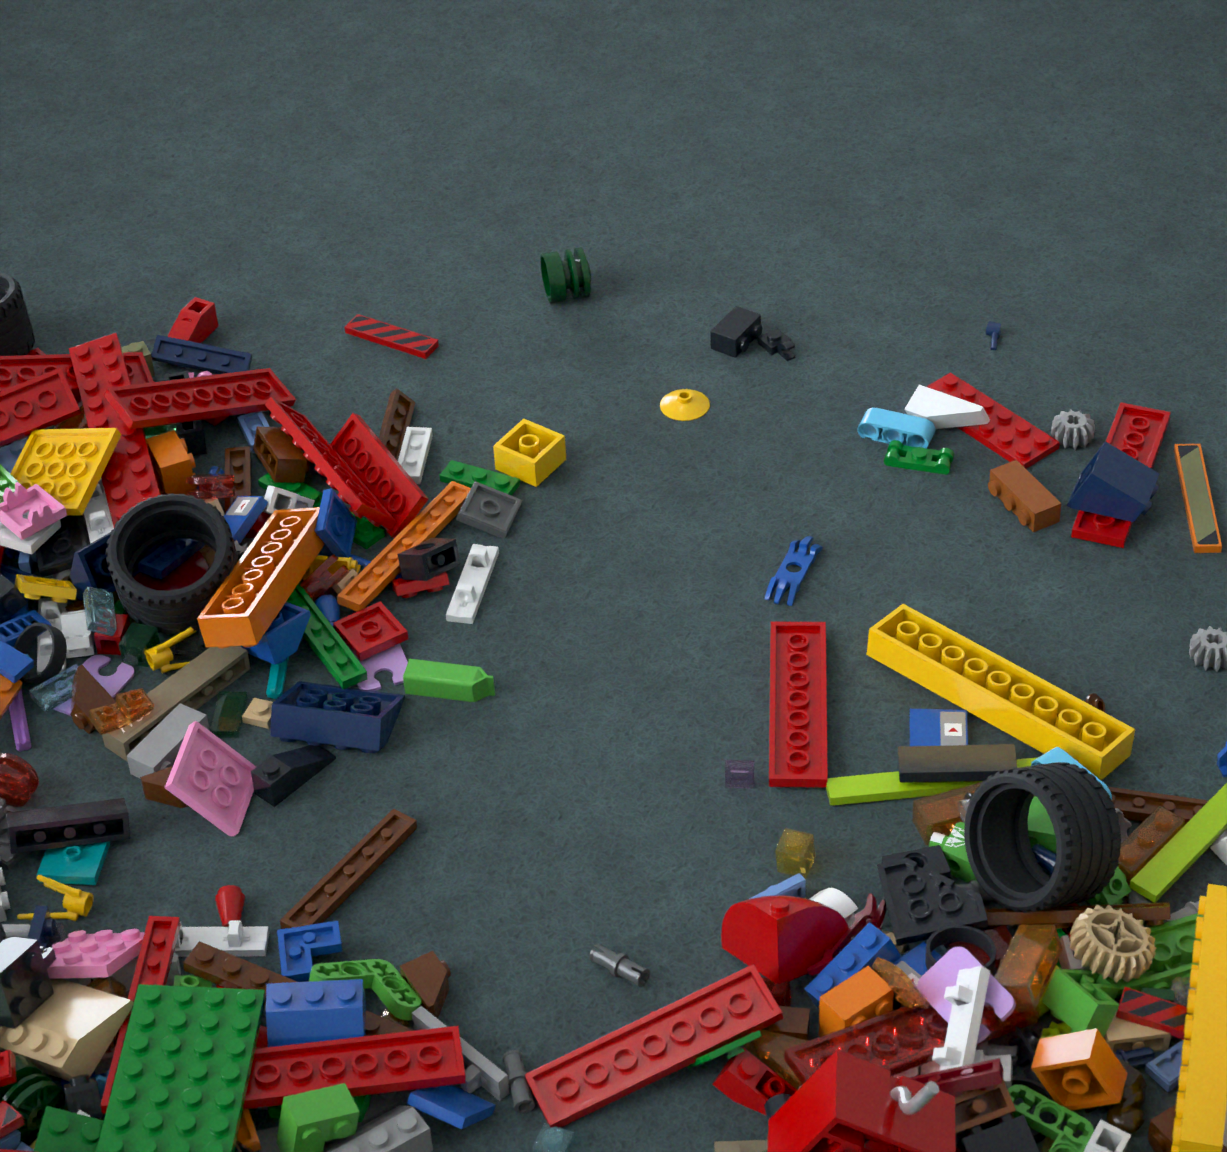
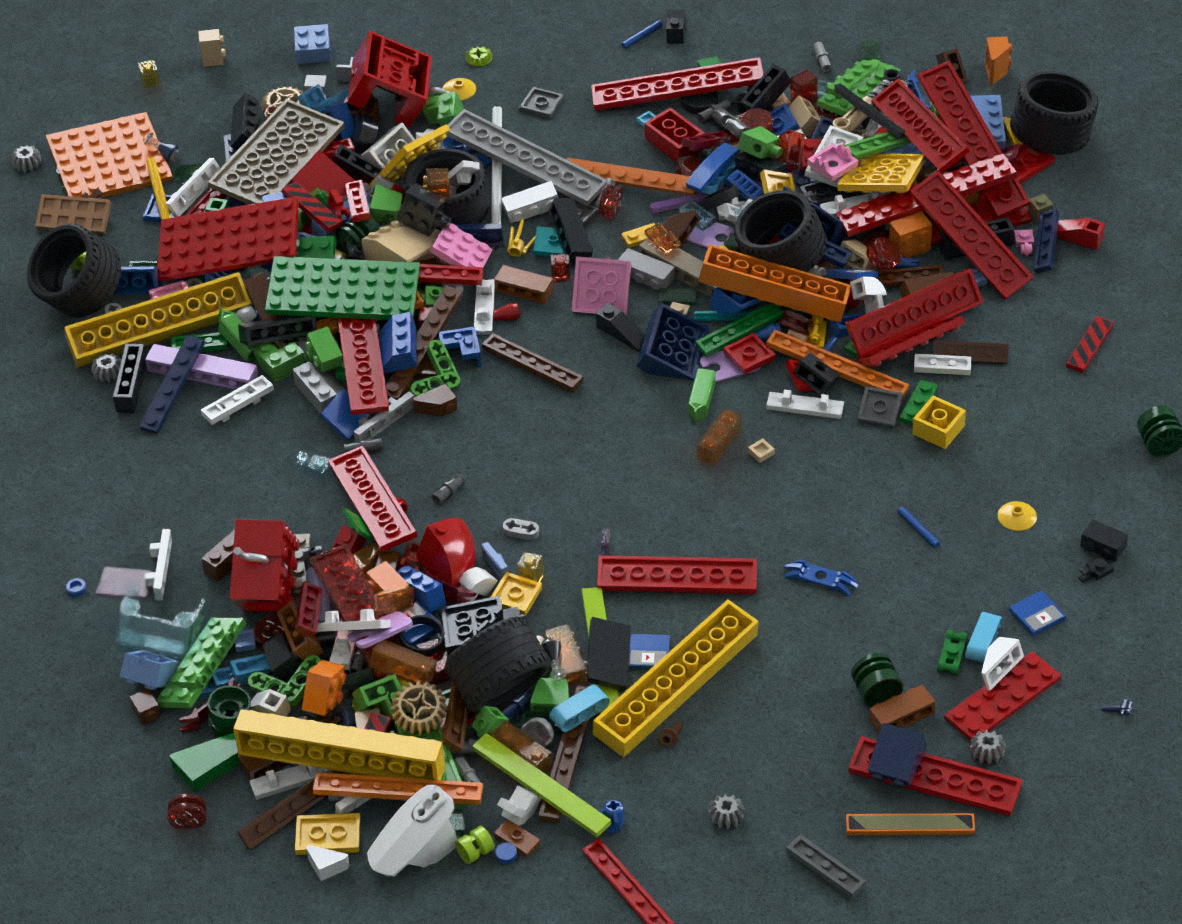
camera: 90 degrees right, 5 degrees up
(82, 757) = (636, 236): none -> yellow plate
(144, 842) = (560, 267): none -> clear red brick
(172, 883) = (523, 284): none -> brick
(335, 524) = (835, 317): blue tile -> none
(537, 659) = (719, 437): none -> clear orange brick
(561, 622) = (761, 450): none -> tan plate
(704, 484) = (918, 527): none -> blue bar
(710, 877) = (520, 529): none -> light grey beam
(842, 869) = (517, 592): none -> yellow plate
(849, 390) = (1037, 613): none -> blue tile
(988, 506) = (876, 679): none -> dark green wheel

